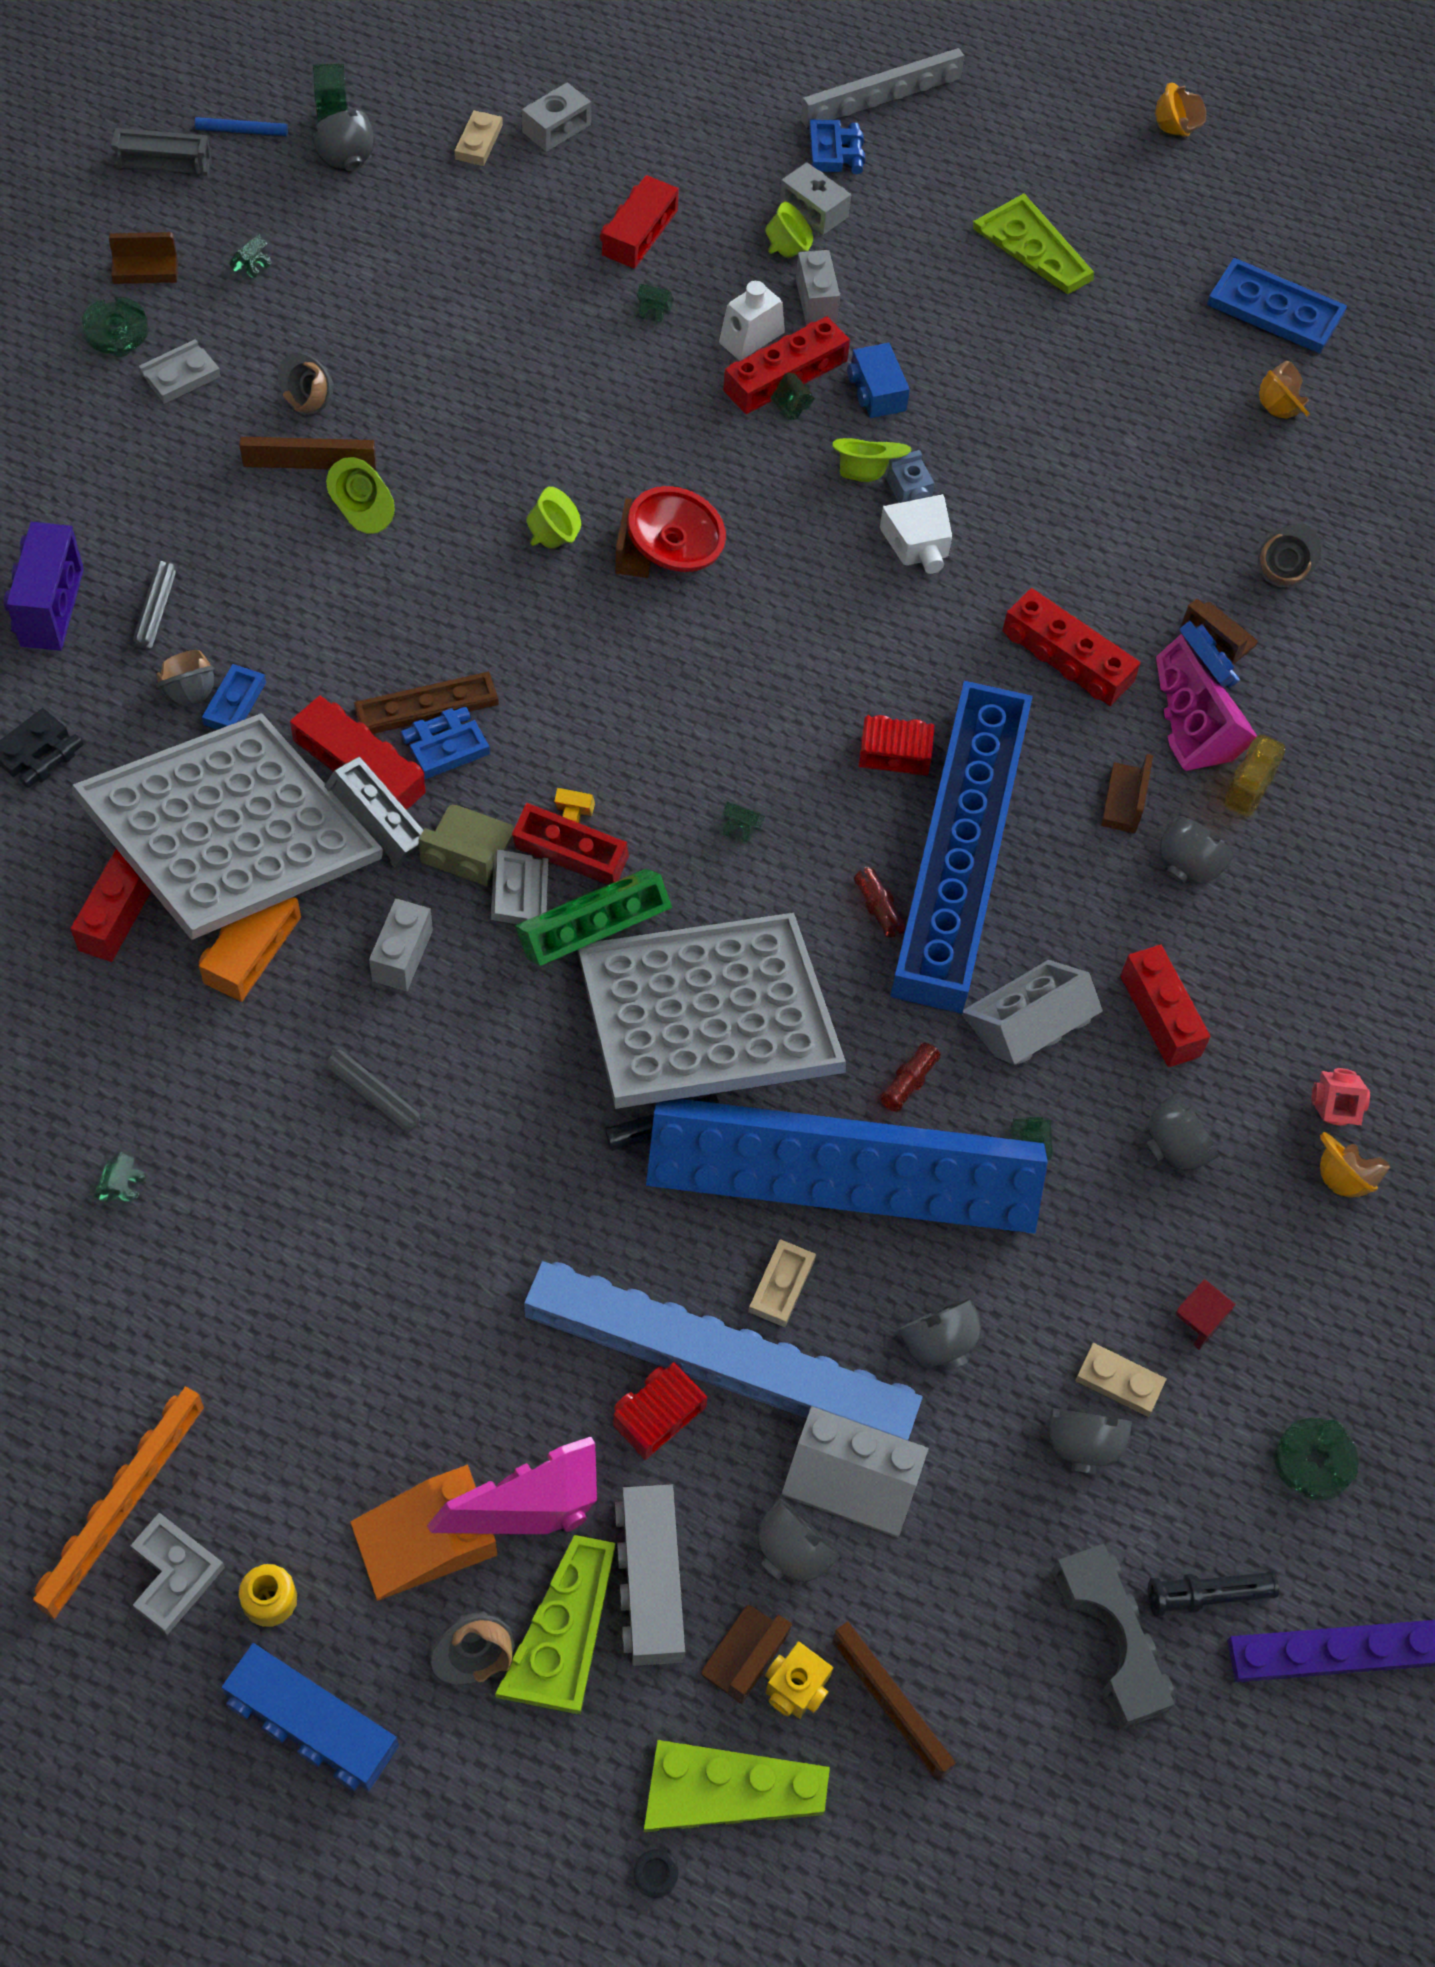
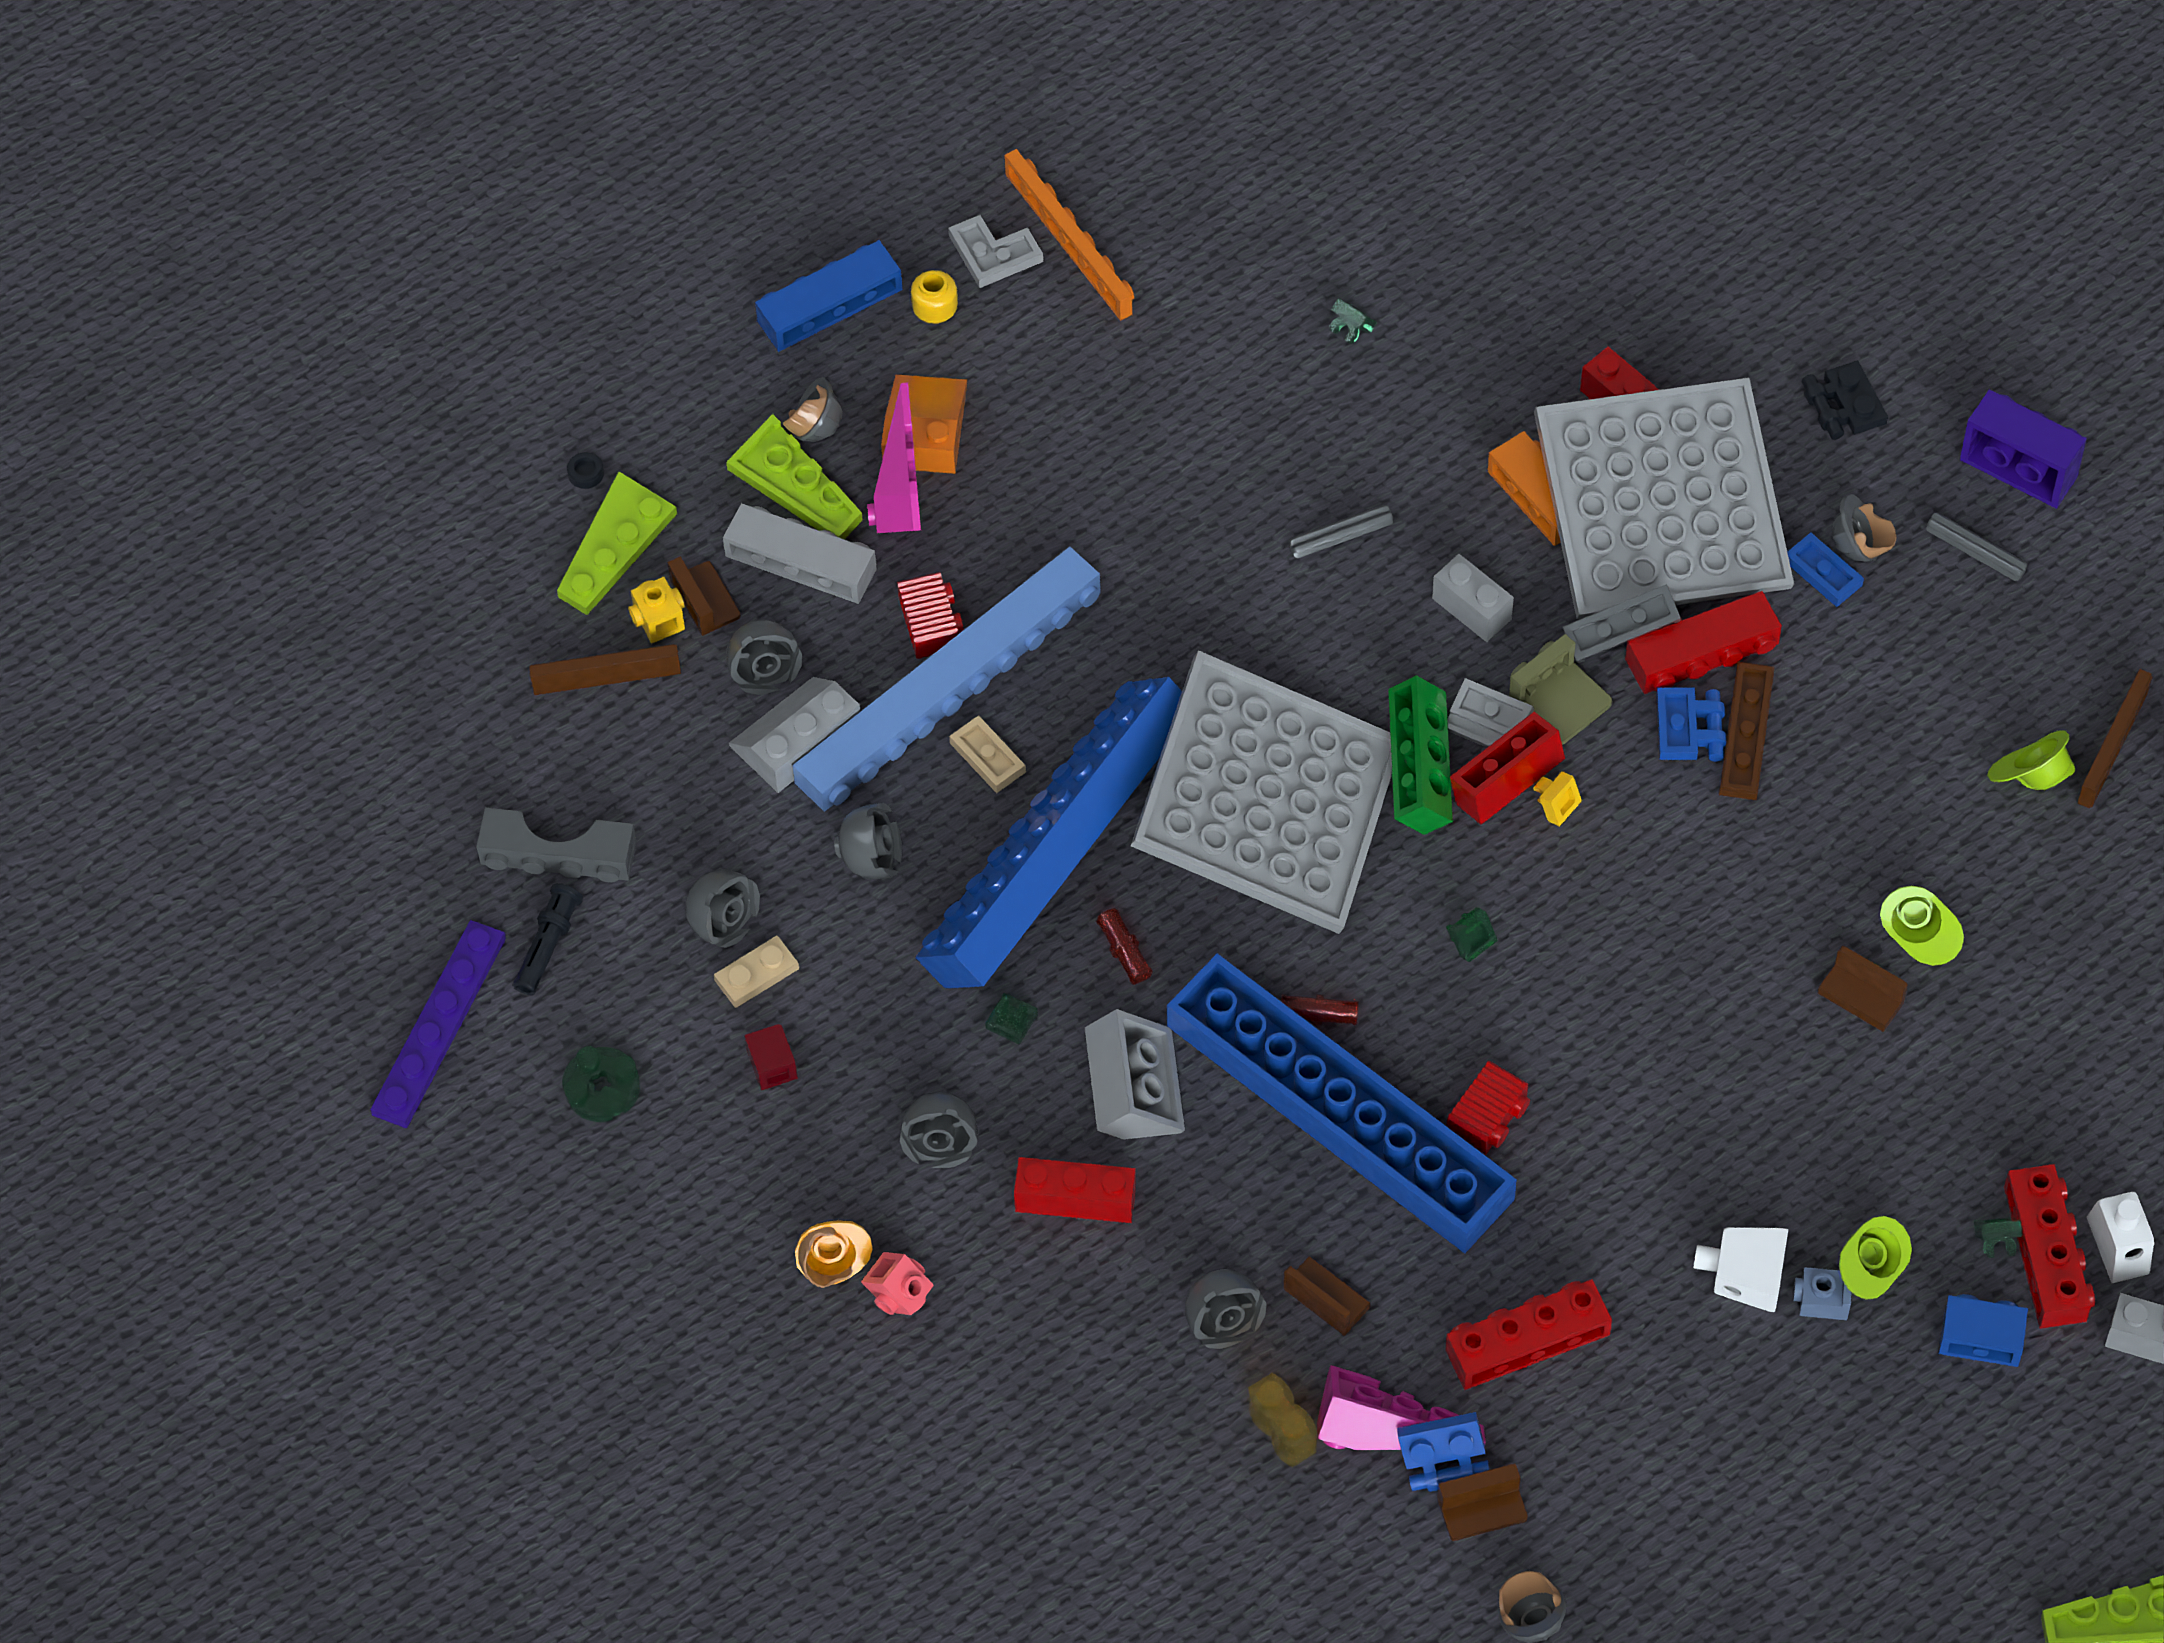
camera: 125 degrees right, 0 degrees up
(676, 529) = (1843, 995): red dish -> none

